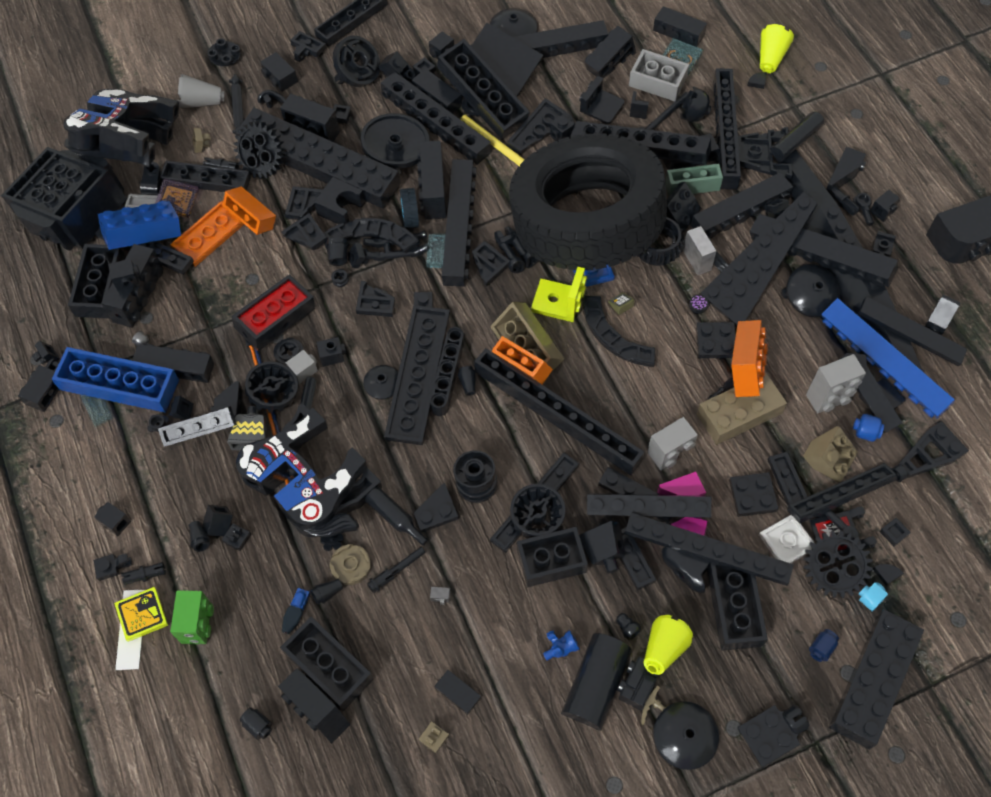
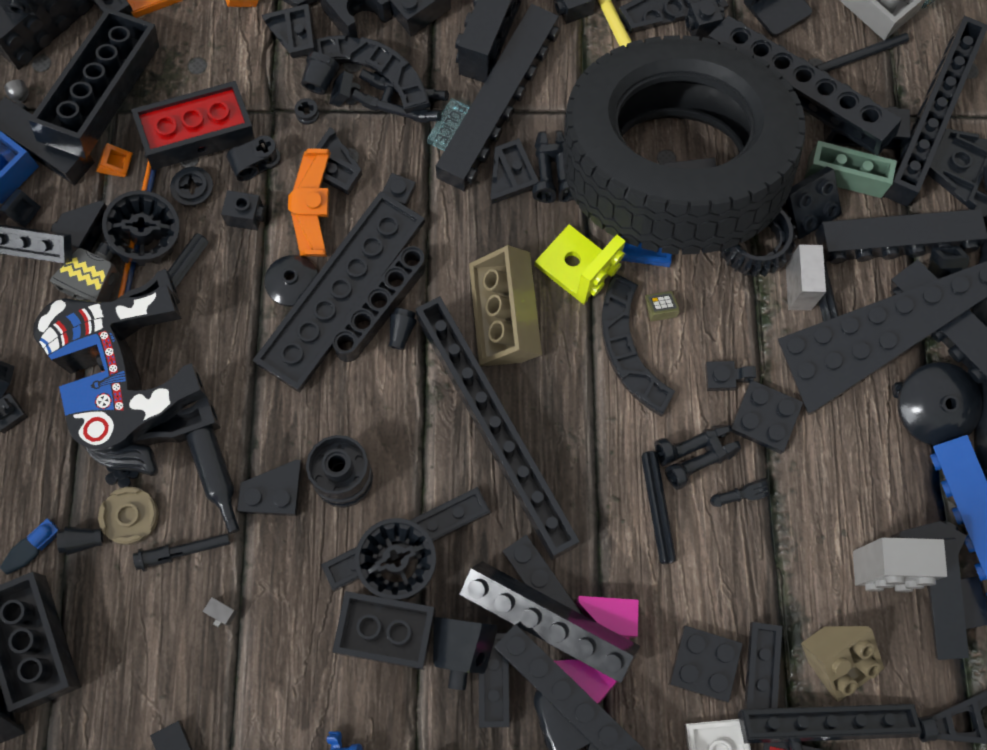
camera: 20 degrees right, 10 degrees up
(197, 311) = (95, 83): none -> black brick
(227, 357) = (114, 161): none -> orange slope
(302, 365) = (197, 215): light grey brick -> none
(320, 318) = (252, 158): none -> black piece
(371, 330) = (310, 202): none -> orange plate
(409, 208) = (439, 50): black wheel -> none
(522, 360) = (479, 335): orange brick -> none
(638, 108) = (827, 29): black panel -> none
(670, 441) = (626, 542): light grey brick -> none
(675, 412) = (658, 507): none -> black axle
(679, 327) = (724, 376): none -> black plate
(696, 105) = (909, 59): black cylinder -> none
(697, 372) = (709, 439): none -> black piece
(698, 304) = (768, 353): black tile -> none
(732, 415) = (750, 534): dark tan brick -> none
(749, 358) = (792, 472): orange brick -> none
(868, 427) = (916, 643): blue head -> none

